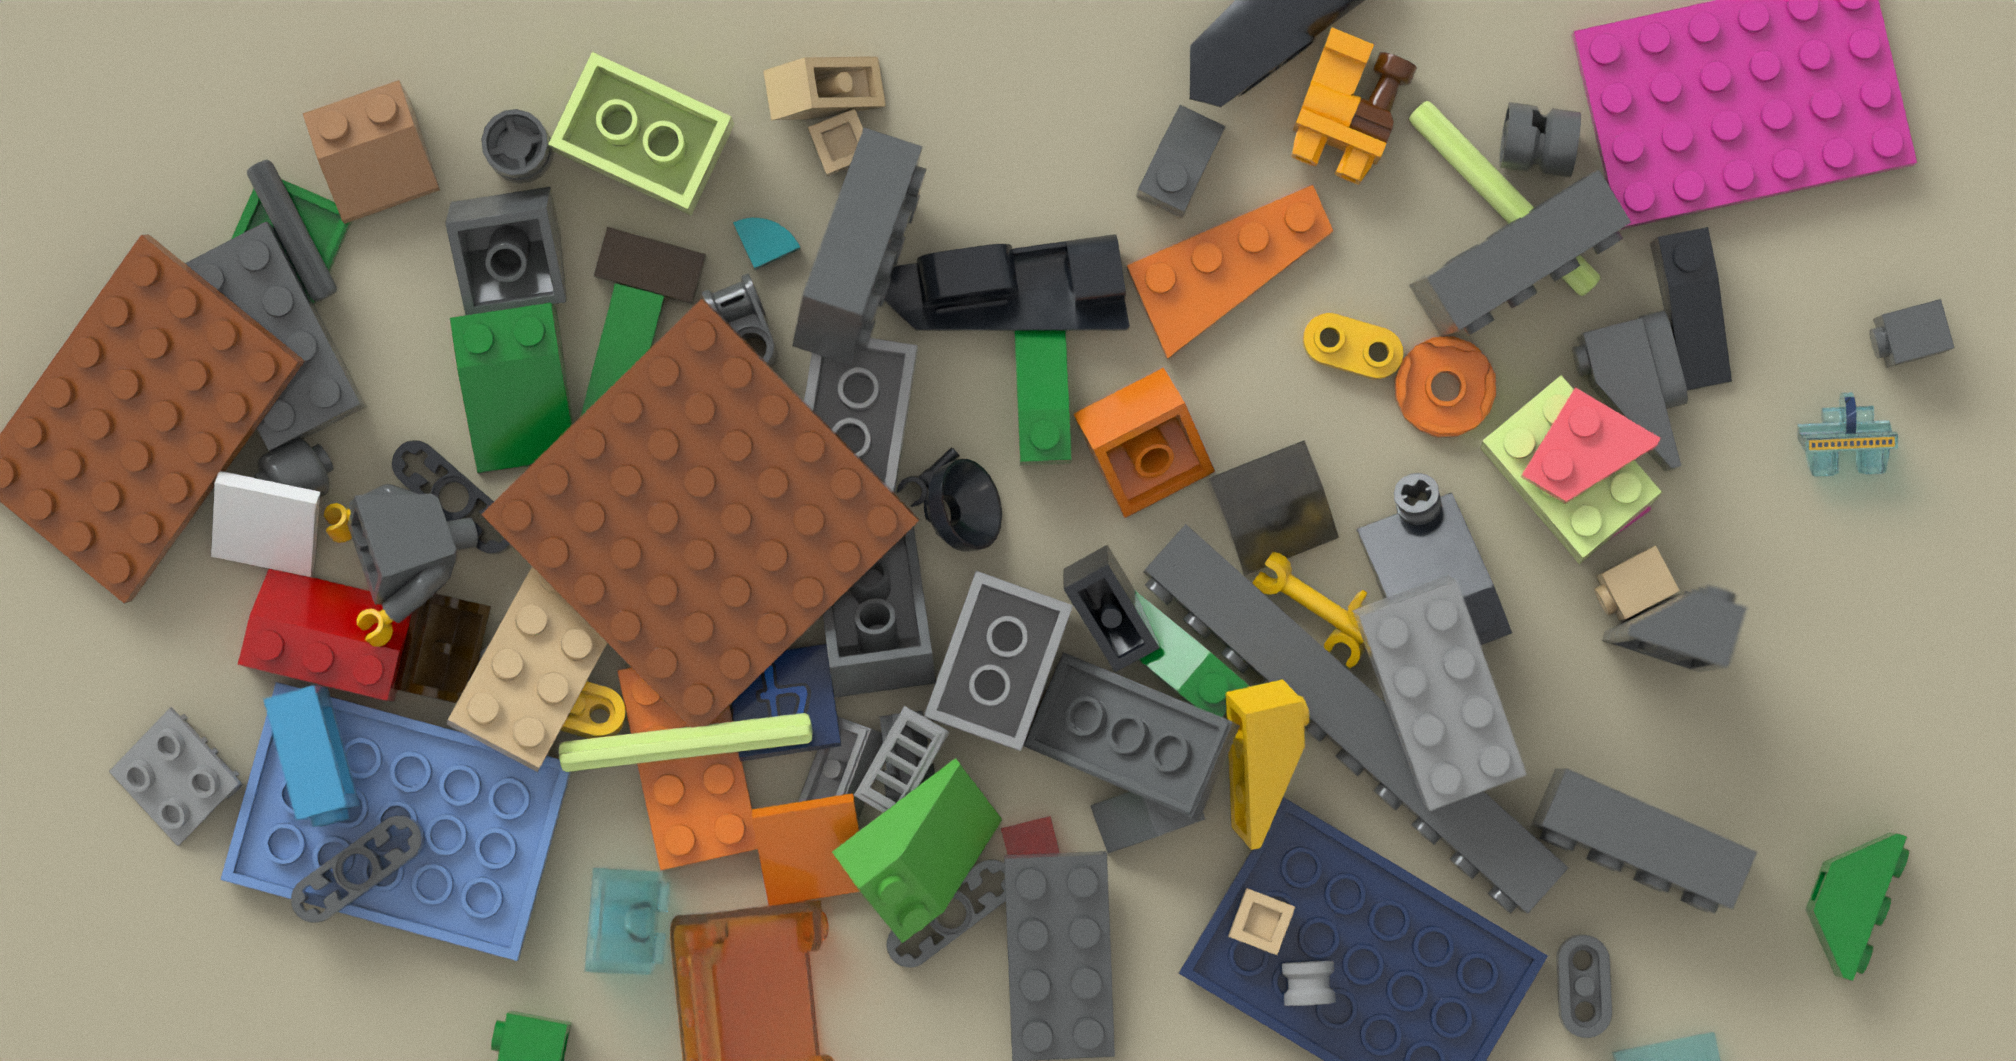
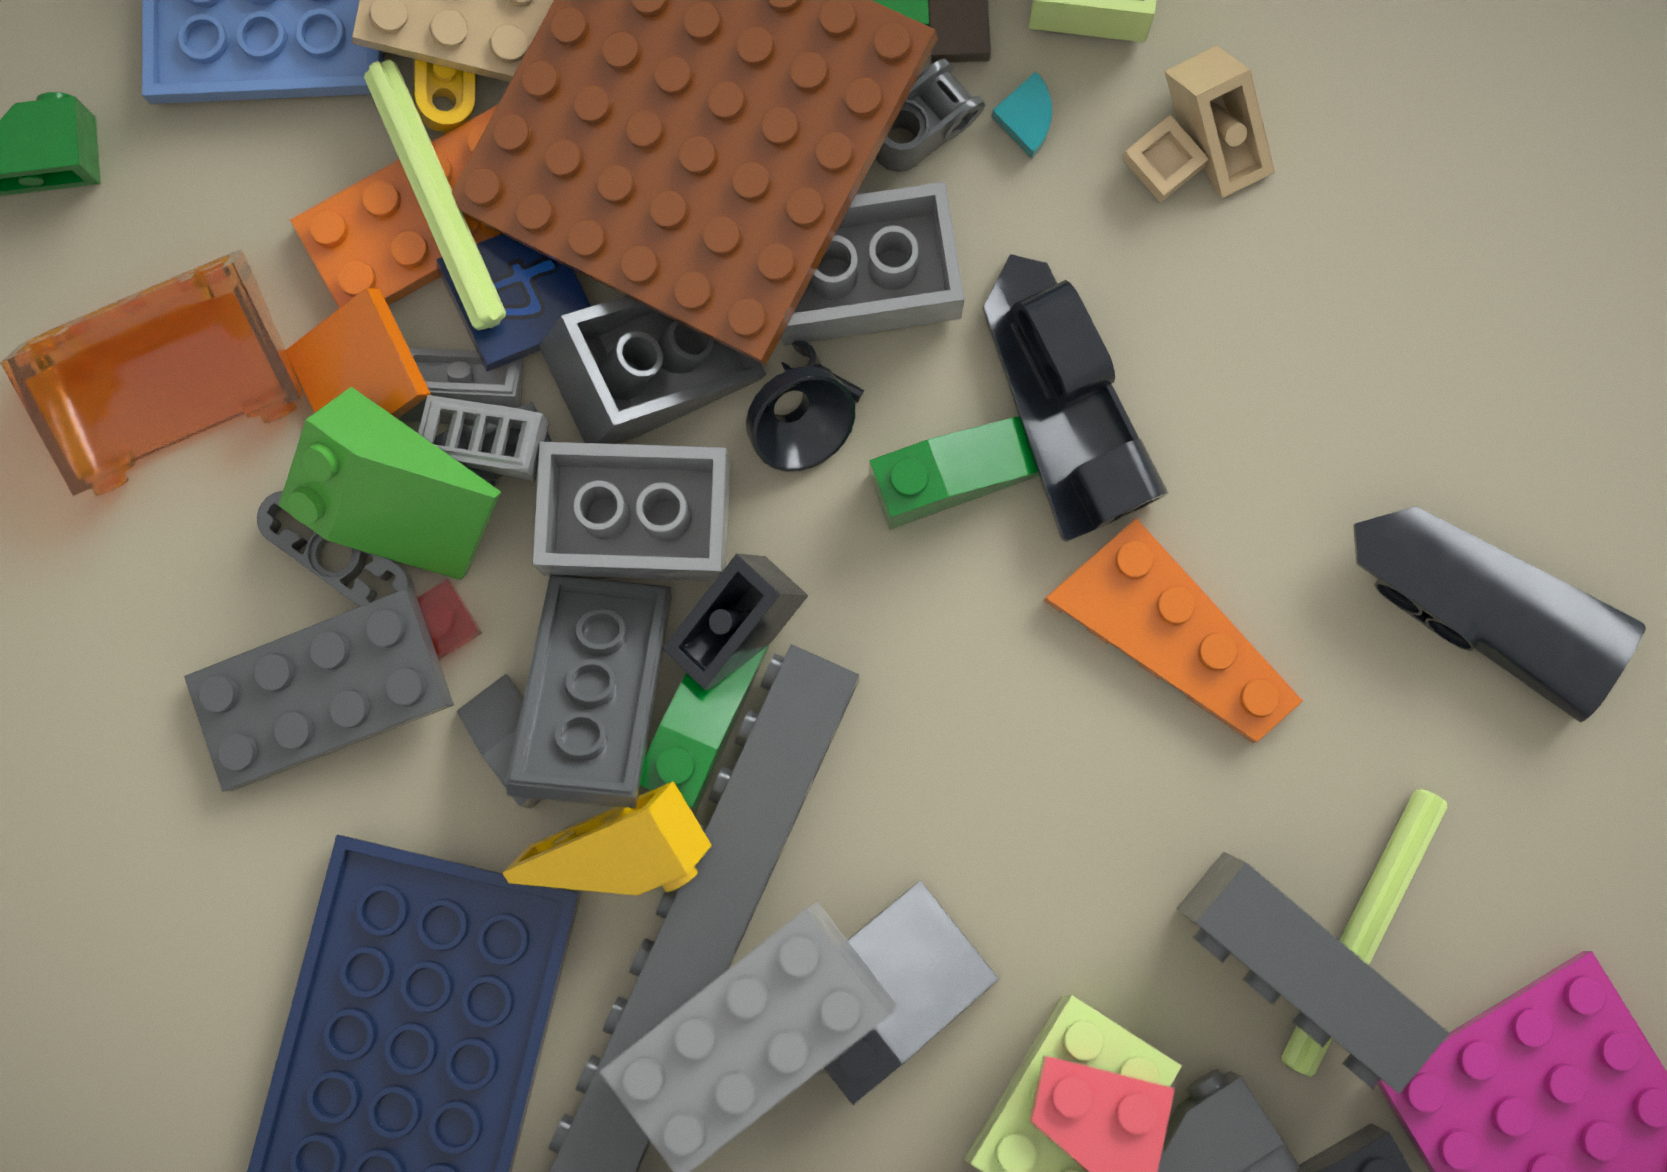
camera: 80 degrees right, 5 degrees down
(625, 920) = (213, 188): clear light blue slope -> none
(860, 247) = (1054, 191): dark grey brick -> none
(1144, 442) = (939, 600): orange slope -> none
(1180, 161) = (1275, 539): dark grey slope -> none
(1261, 921) = (419, 911): tan plate -> none
(1273, 506) = (912, 773): clear smoke slope -> none
(1308, 983) = (361, 990): light grey wheel -> none
(1344, 621) = (817, 855): yellow bar -> none
(1345, 120) = (1391, 709): light orange hips -> none
(1353, 346) = (1130, 807): yellow plate -> none
(1412, 486) = (990, 930): dark grey bush -> none
(1475, 382) = (1156, 941): orange tile -> none
(1540, 139) = (1451, 952): dark grey wheel -> none

